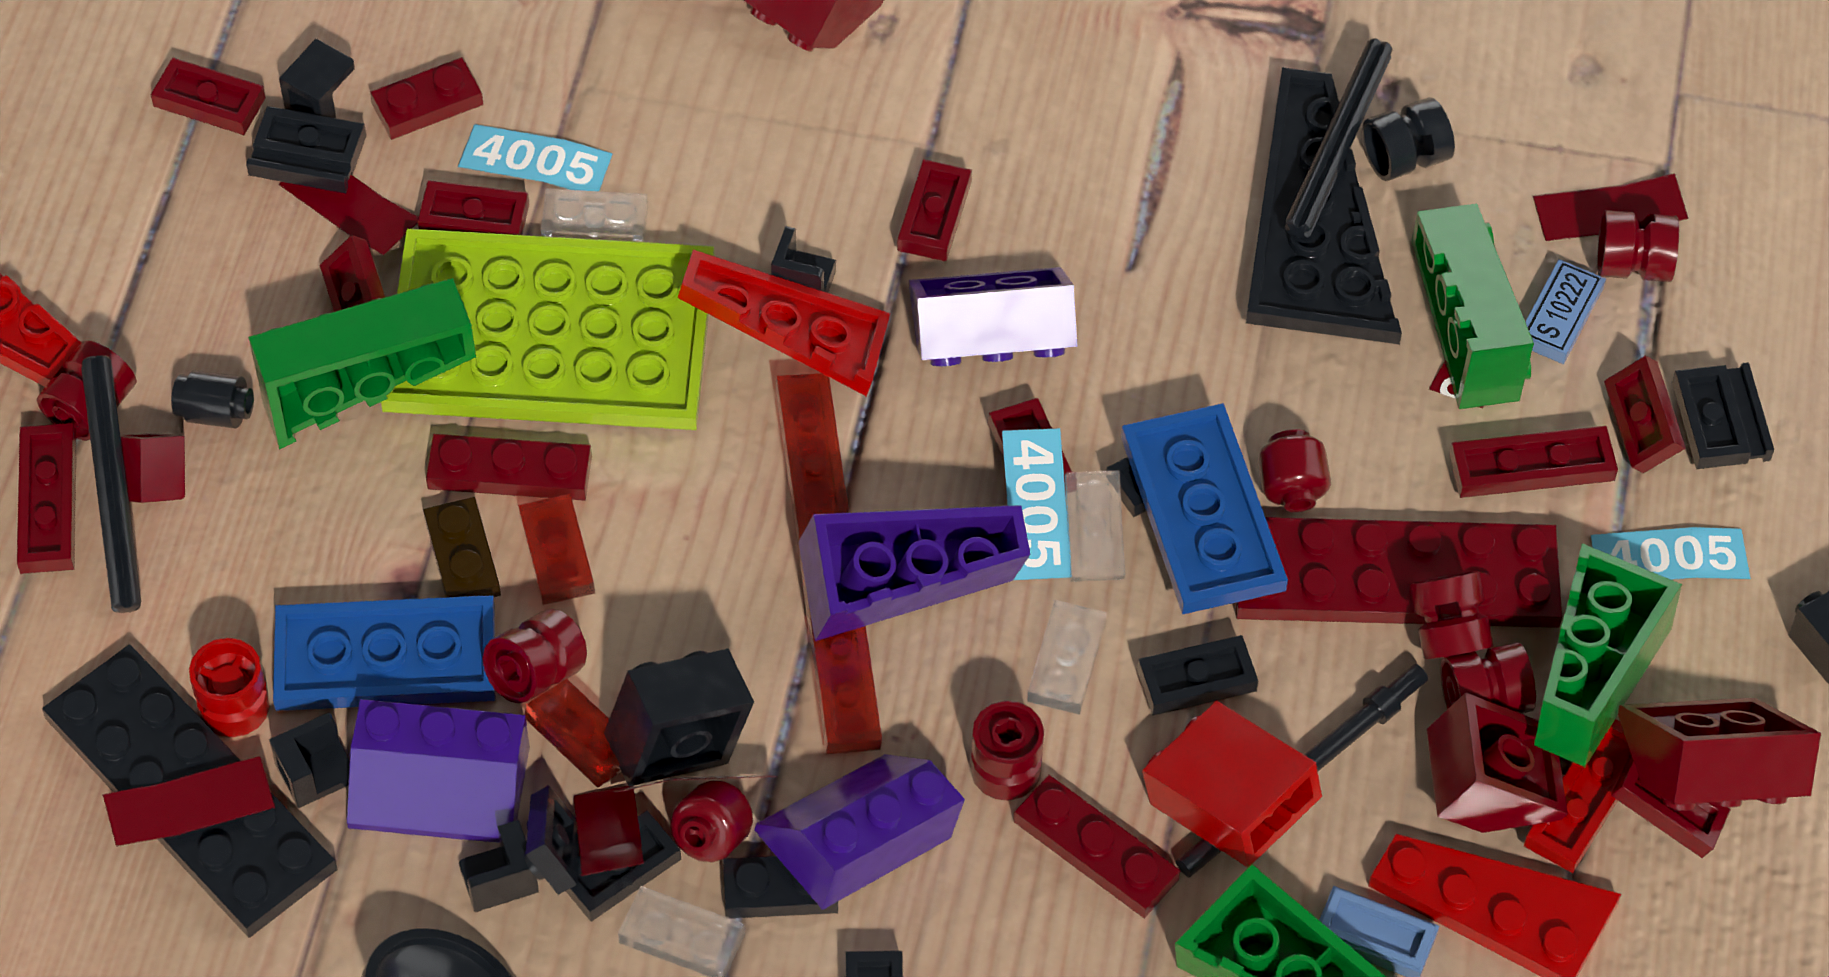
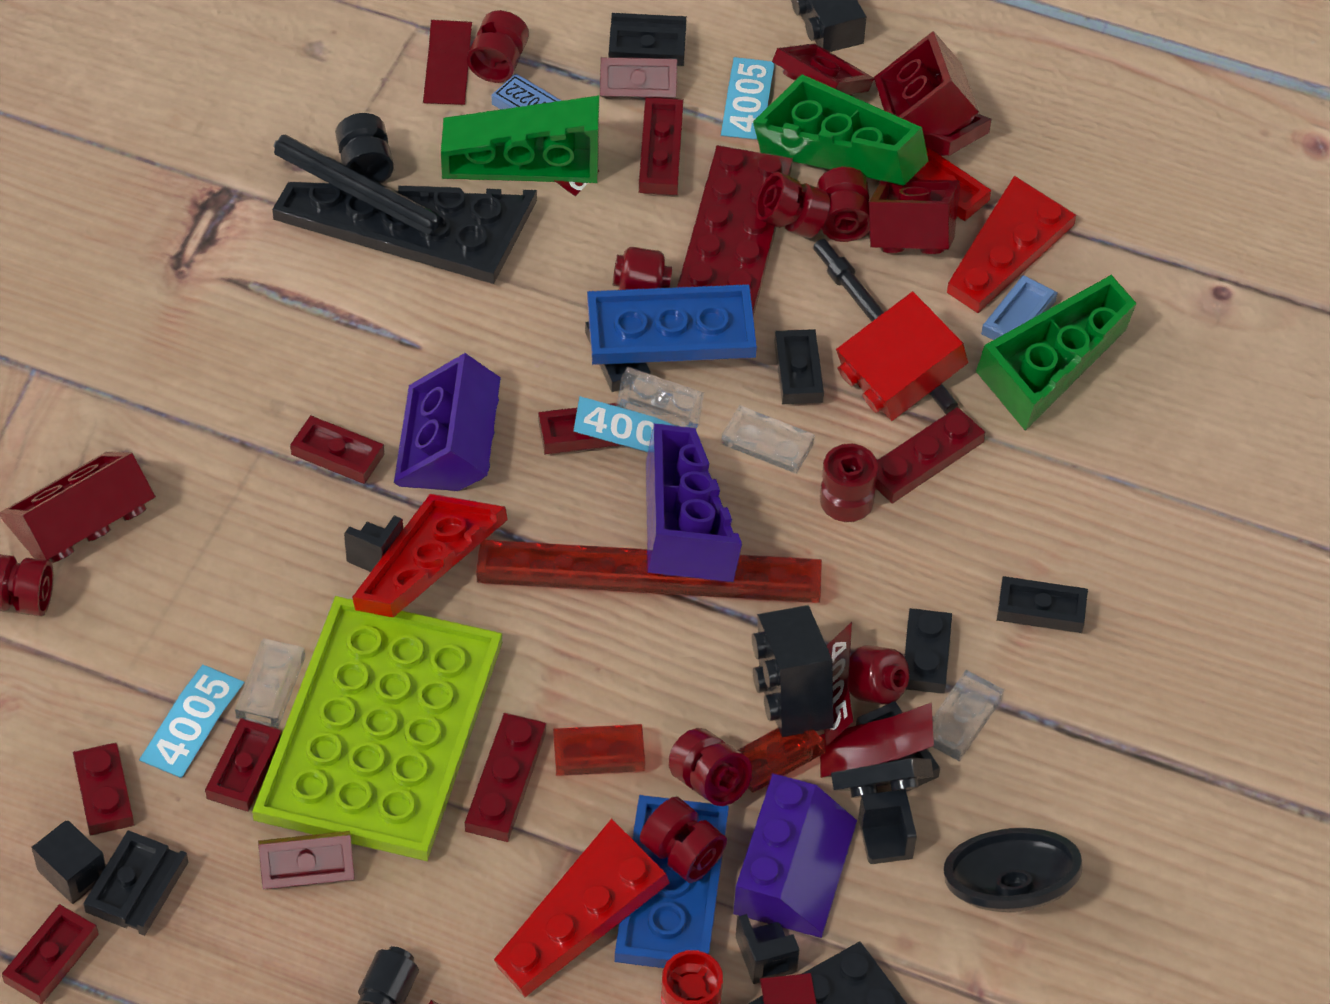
camera: 80 degrees left, 5 degrees down
(333, 566) = (586, 903): none -> red wing
(358, 212) = (213, 855): dark red sticker -> none
(358, 355) = (396, 847): green wedge -> none
(419, 629) = (677, 835): none -> dark red wheel
(461, 549) = (577, 819): dark brown plate -> none
(863, 825) = (896, 578): dark purple slope -> none
(1725, 623) = (823, 67): none -> dark red plate

